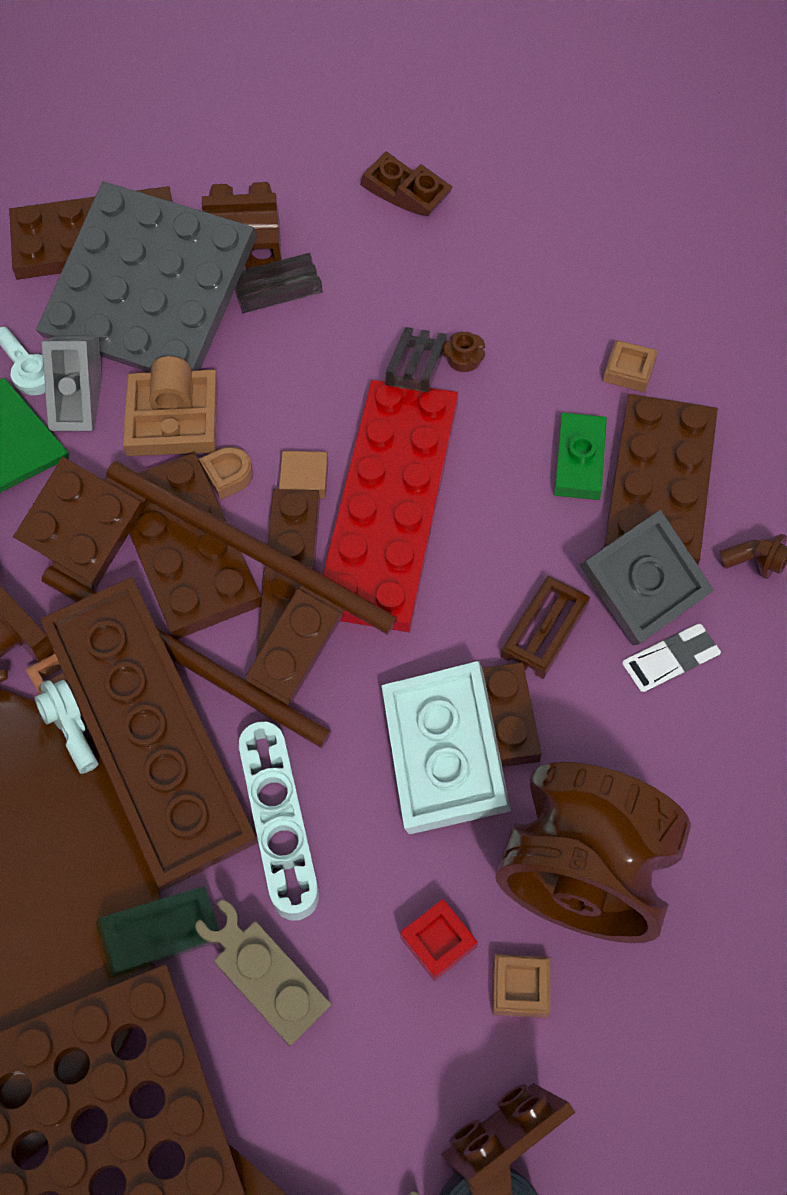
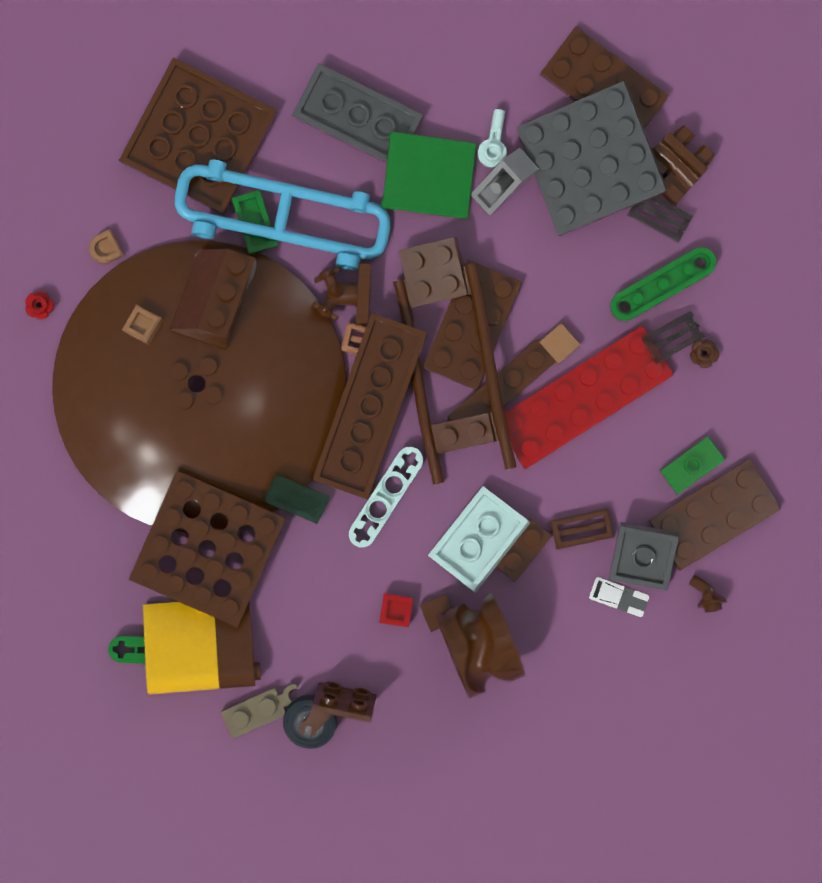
camera: 45 degrees right, 25 degrees up
(59, 706) = (344, 360): light aqua plate -> none
(171, 410) = (533, 246): medium nougat plate -> none
(227, 470) = (528, 304): medium nougat tile -> none
(265, 976) = (319, 556): dark tan plate -> none
(348, 331) = (663, 284): none -> green plate
(401, 186) = (789, 220): reddish brown slope -> none
(484, 894) = (435, 607): none -> reddish brown tile
(521, 986) = (409, 658): medium nougat tile -> none
(630, 366) = (772, 443): medium nougat tile -> none

